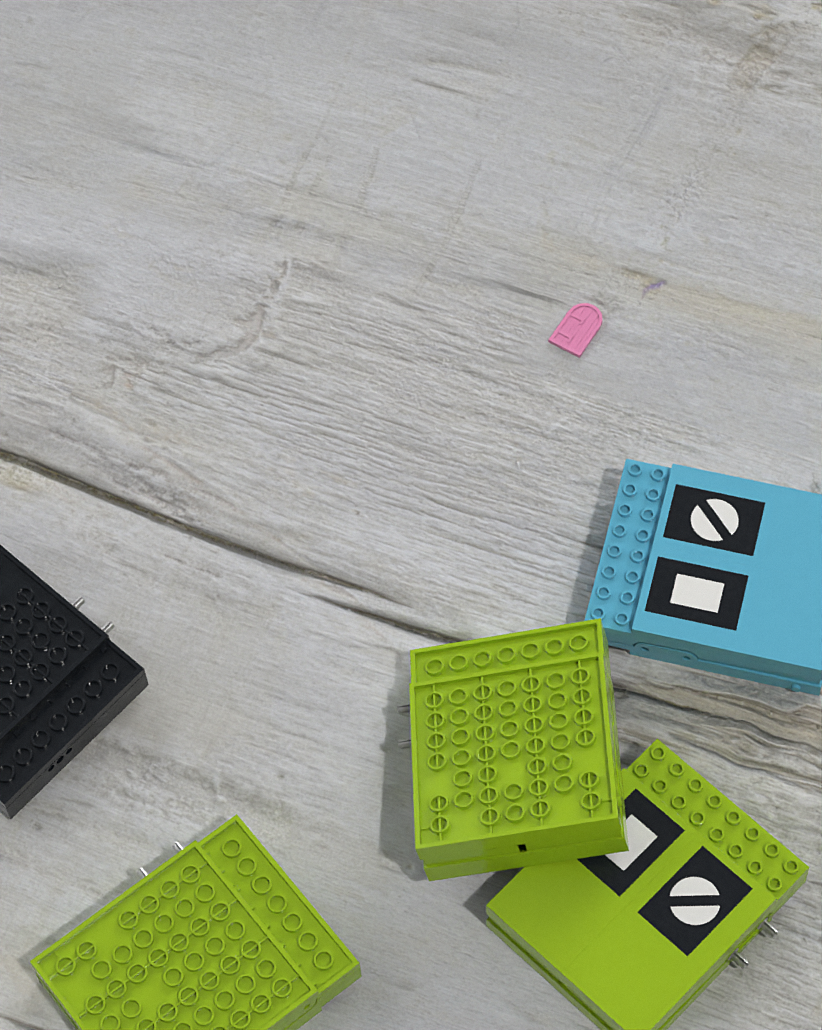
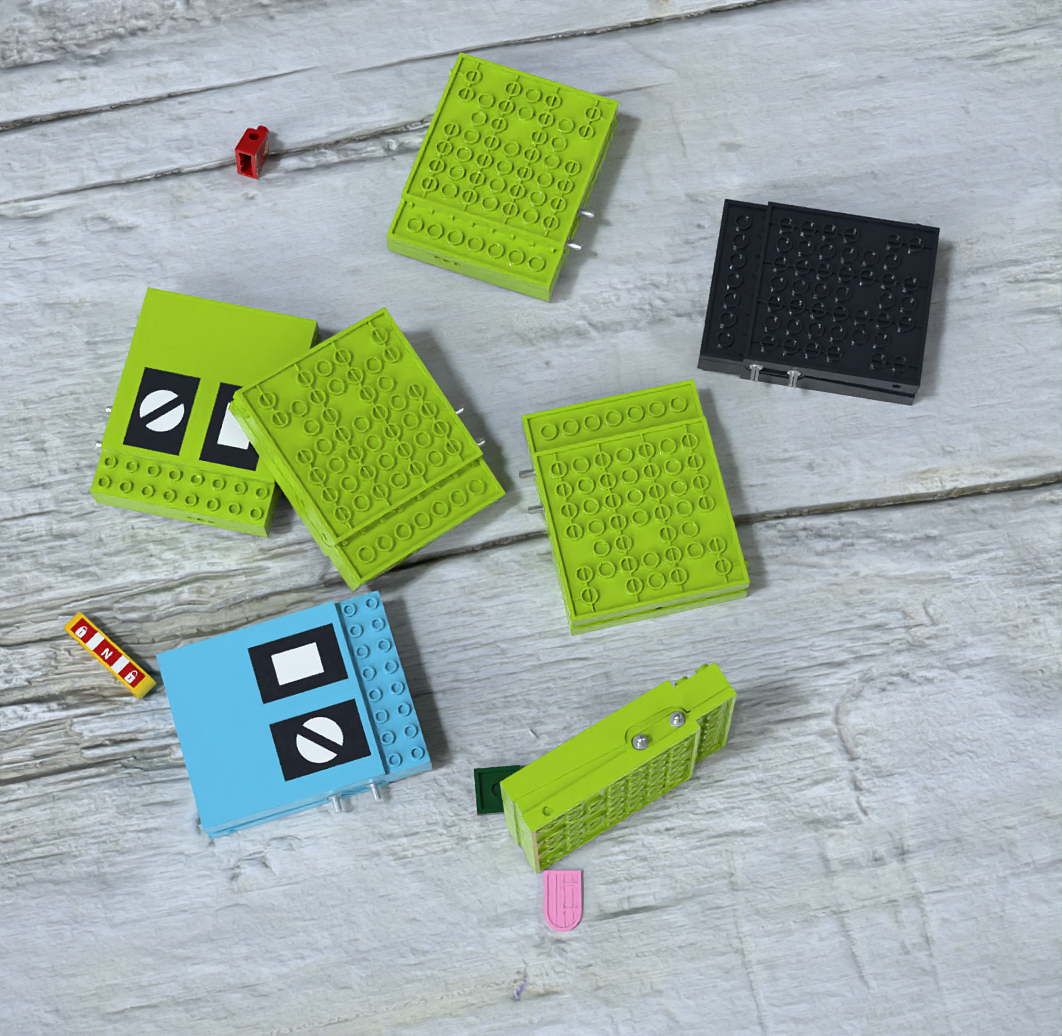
camera: 145 degrees right, 10 degrees up
(300, 583) = (634, 507): none -> lime piece
(474, 335) = (617, 766): none -> lime piece
(578, 430) = (488, 788): none -> dark green plate

